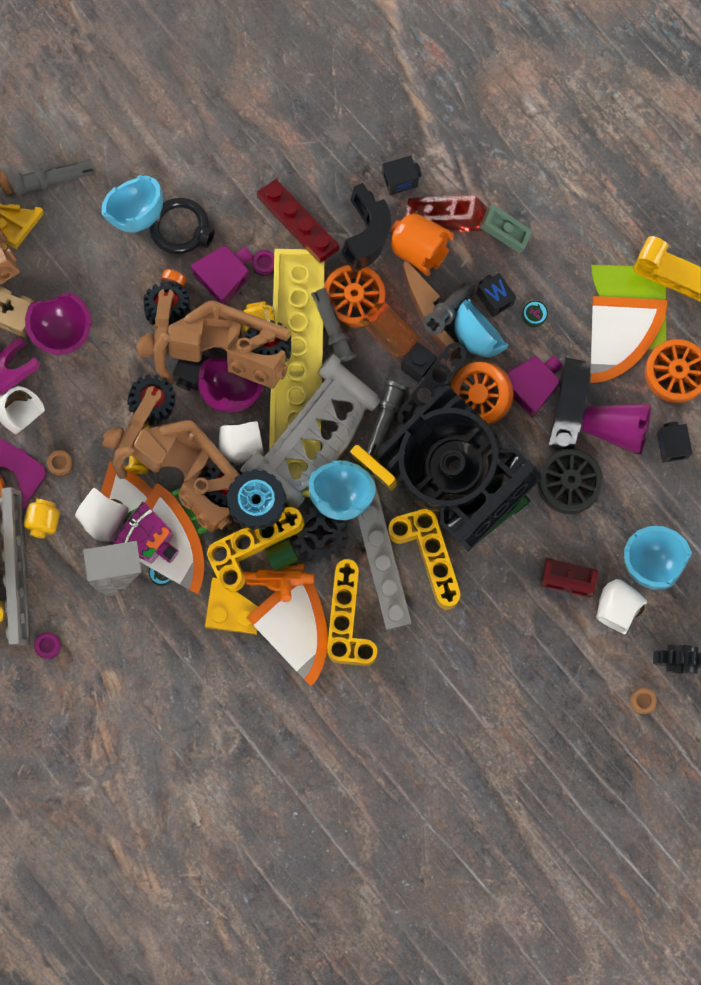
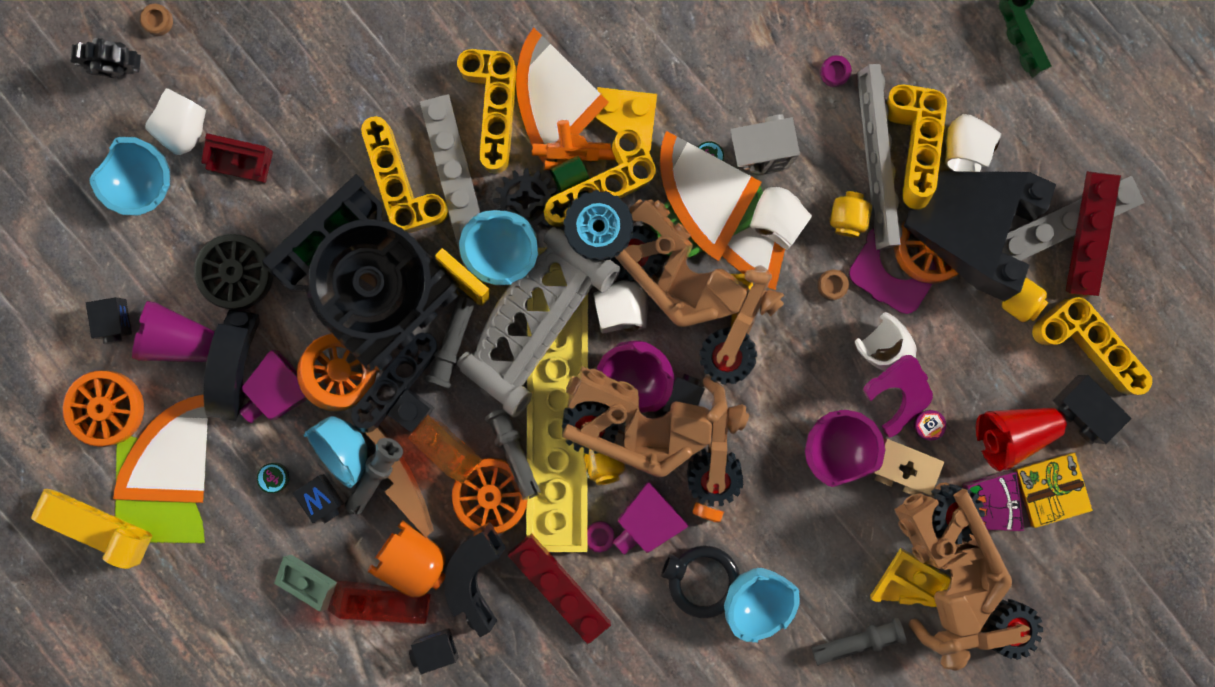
camera: 175 degrees left, 10 degrees up
(150, 533) = (727, 191): magenta torso -> none

